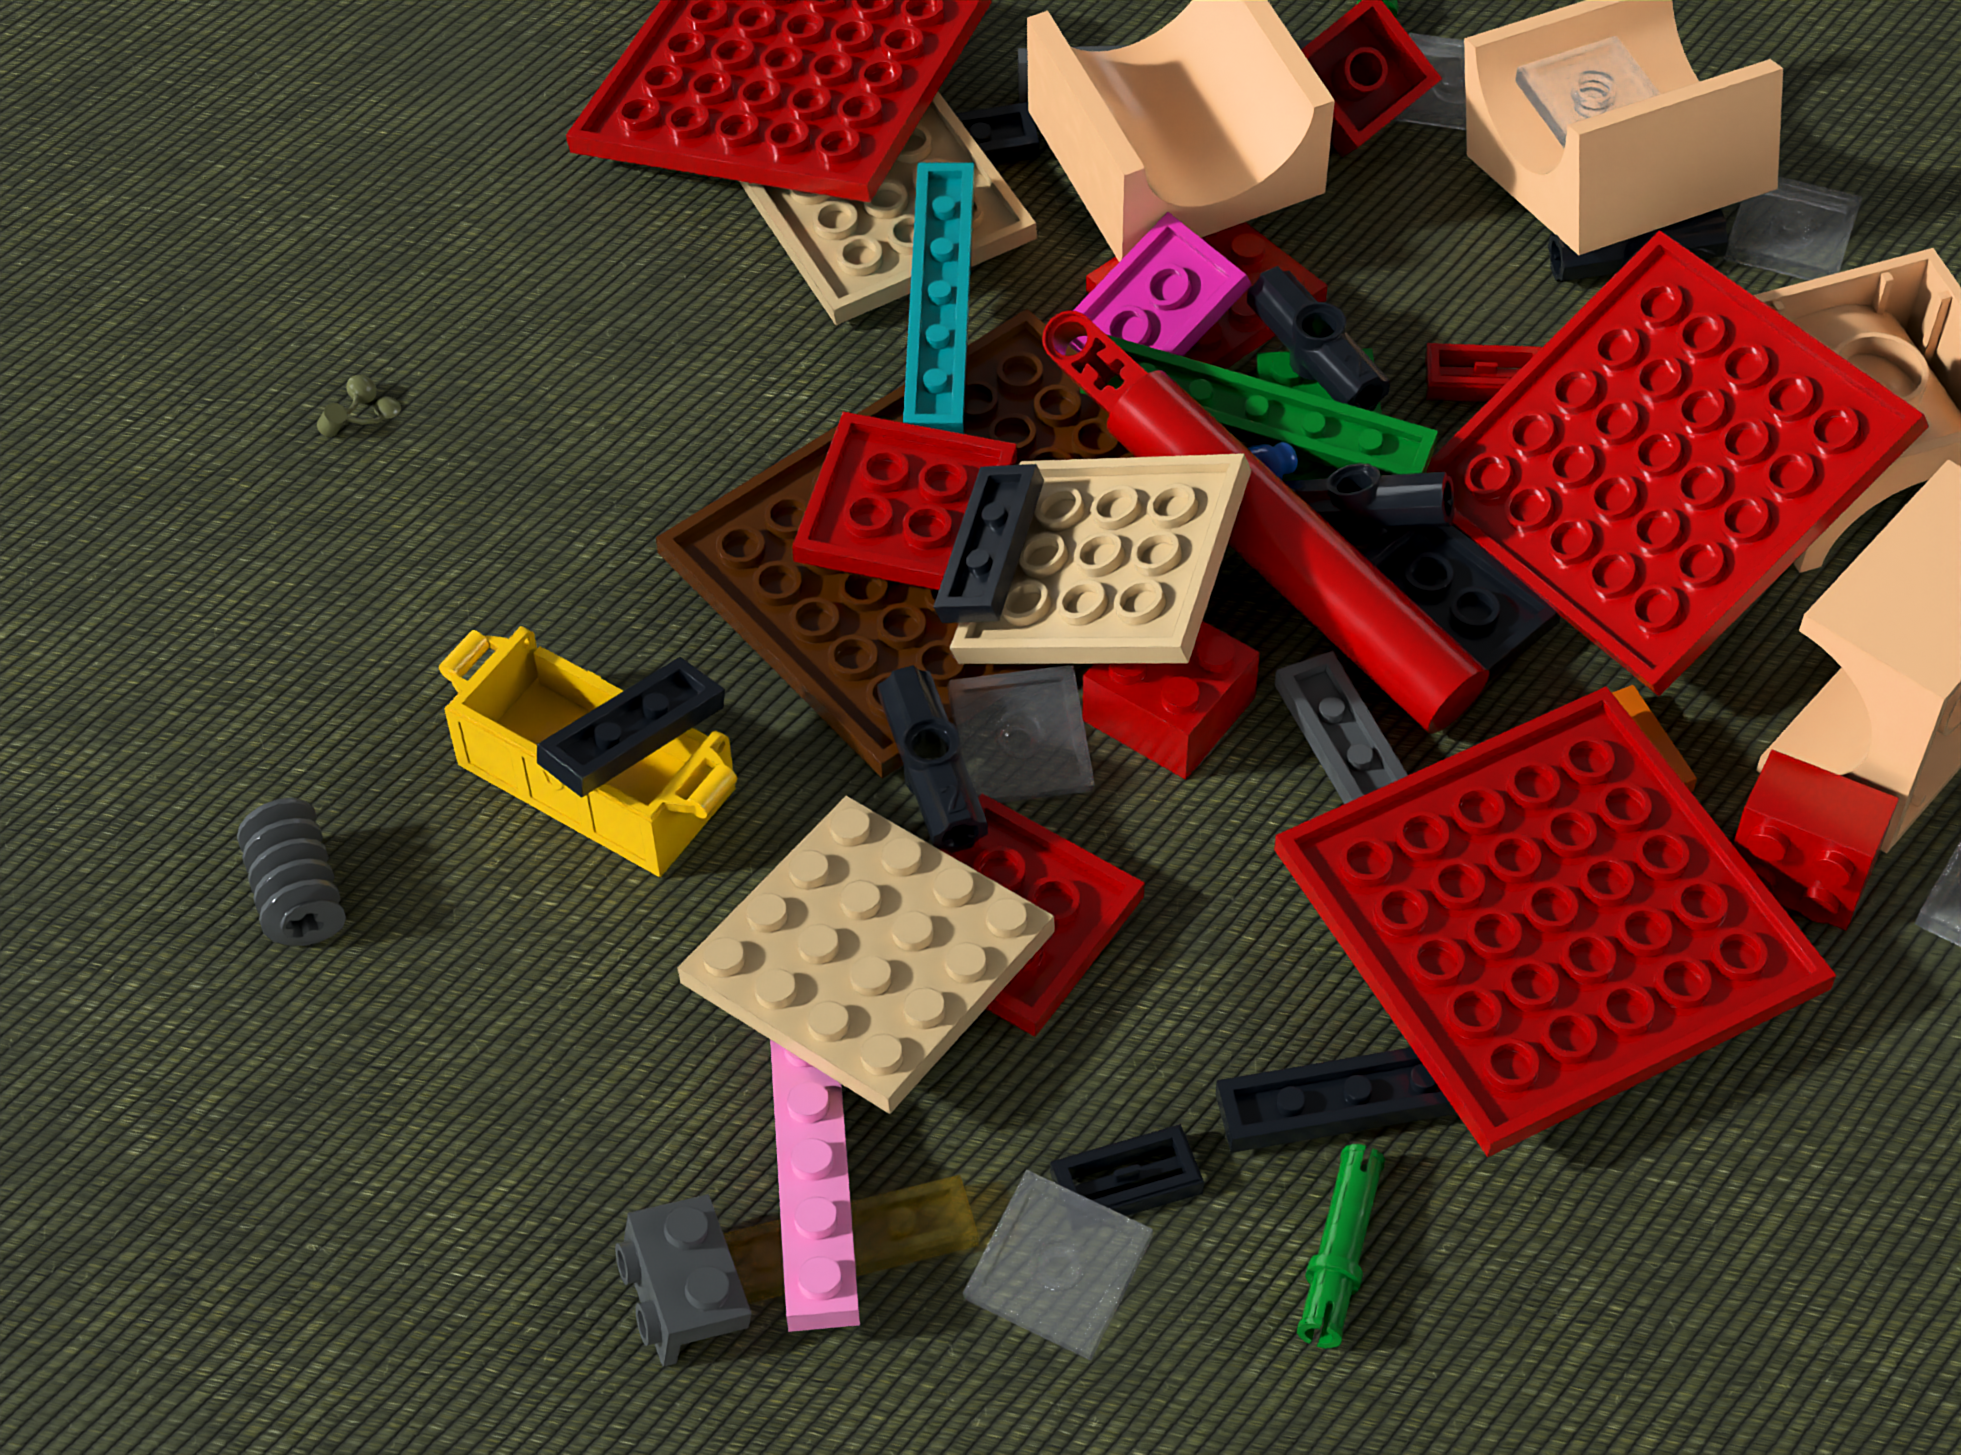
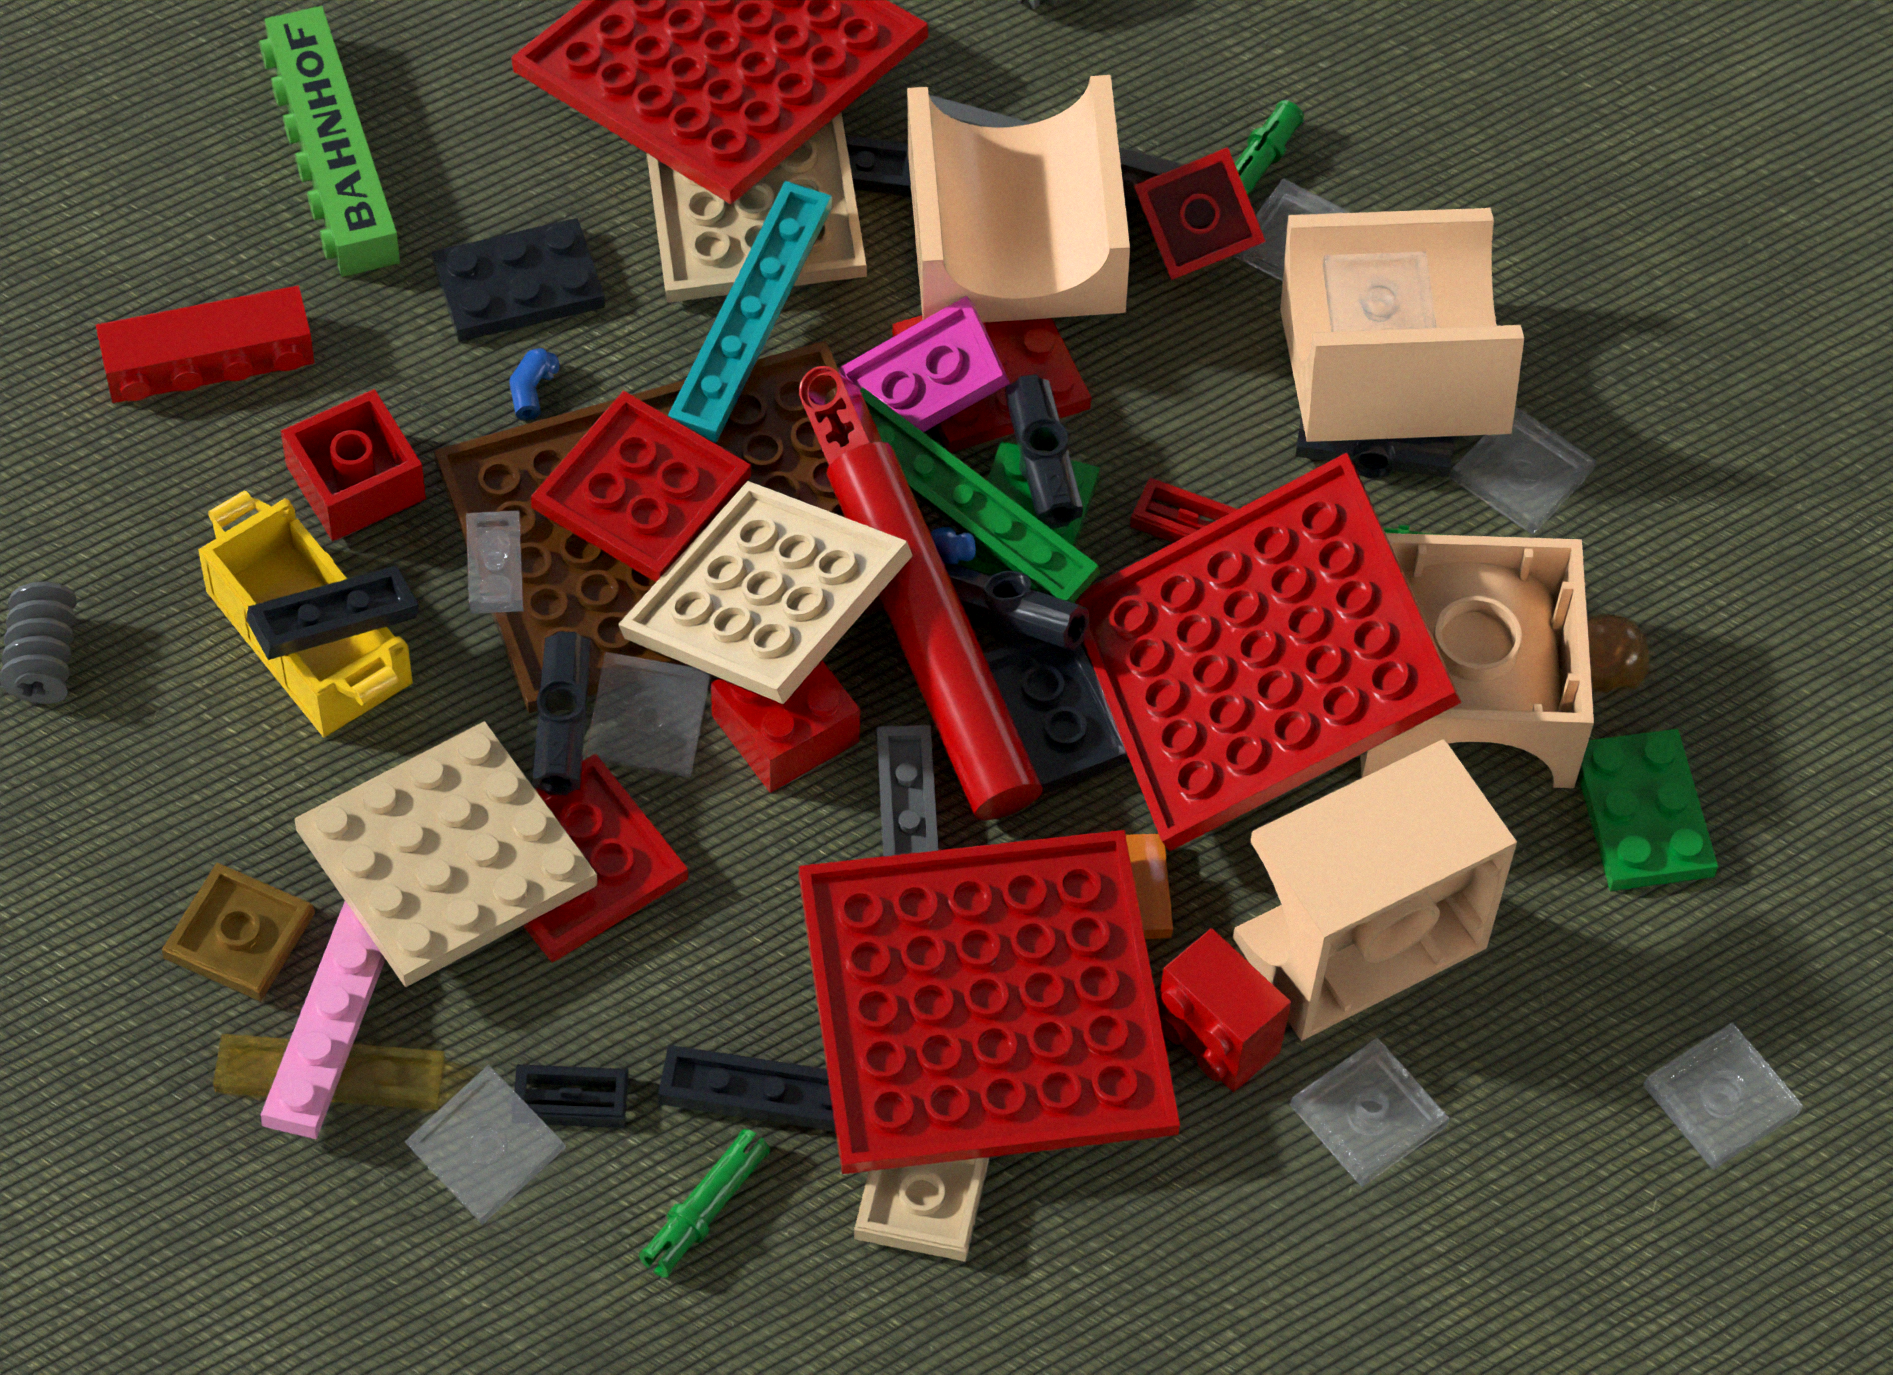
camera: 15 degrees right, 5 degrees up
(350, 507) = (205, 344): none -> red brick
(362, 391) = (257, 239): olive piece -> none
(404, 272) = (330, 141): none -> bright green brick
(574, 576) = (353, 464): none -> red brick
(659, 1119) = (238, 931): none -> pearl gold plate
(665, 349) = (518, 279): none -> black plate
(681, 1275) = (204, 1056): dark grey bracket -> none
(720, 440) = (523, 381): none -> blue arm
(781, 626) = (494, 562): none -> clear plate
(989, 544) = (682, 547): black plate -> none
(1589, 1166) = (923, 1207): none -> tan plate

